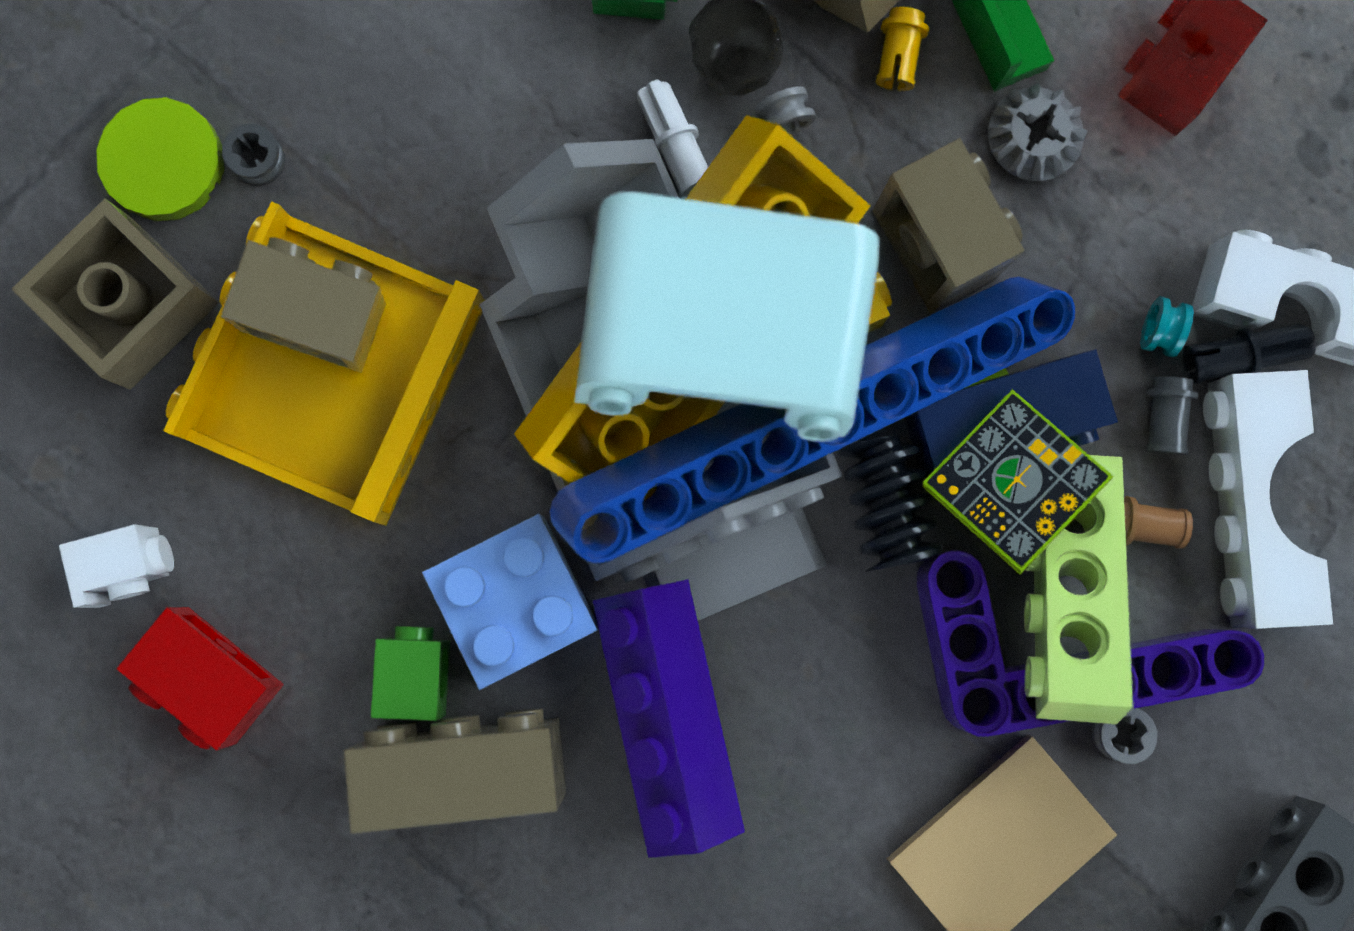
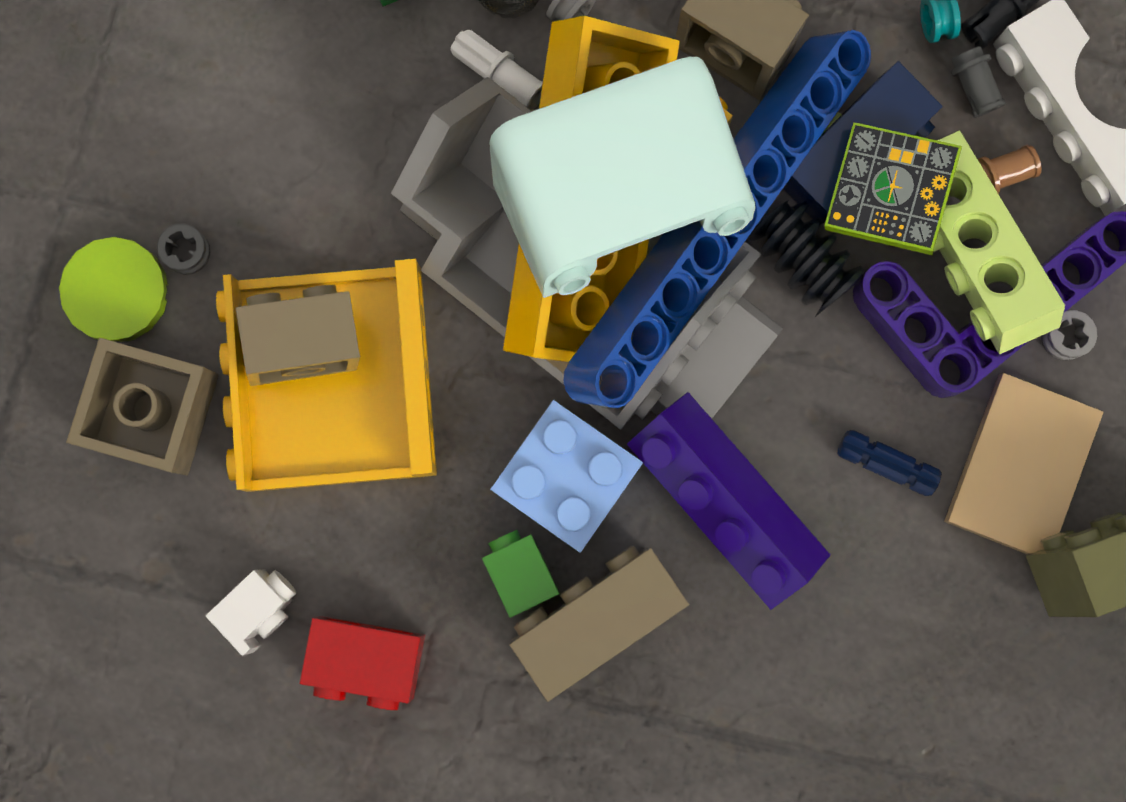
camera: 20 degrees left, 0 degrees up
(861, 767) = (889, 463): none -> dark blue axle

